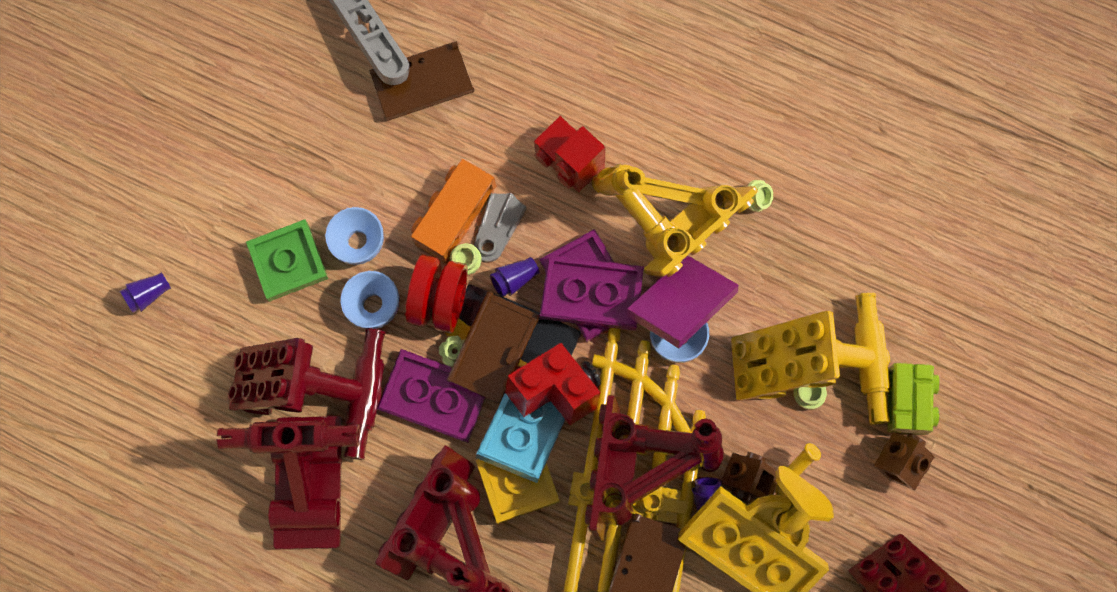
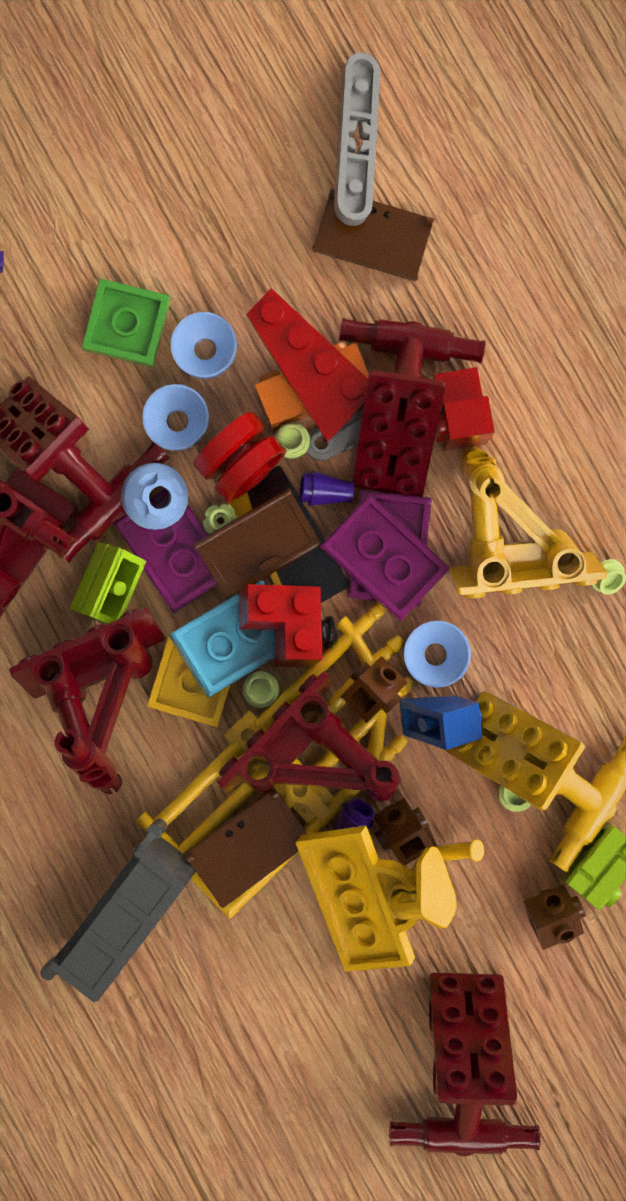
camera: 30 degrees right, 10 degrees up
(381, 373) = (137, 490): none -> light blue piece
(403, 452) = (107, 583): none -> lime brick
(449, 195) = (318, 373): none -> red wing
(526, 176) = (401, 405): none -> dark red plate
(571, 451) = (260, 689): none -> yellowish green plate
(653, 387) = (374, 689): none -> reddish brown brick
(682, 302) = (460, 630): magenta tile -> none
(717, 377) = (441, 720): none -> blue slope

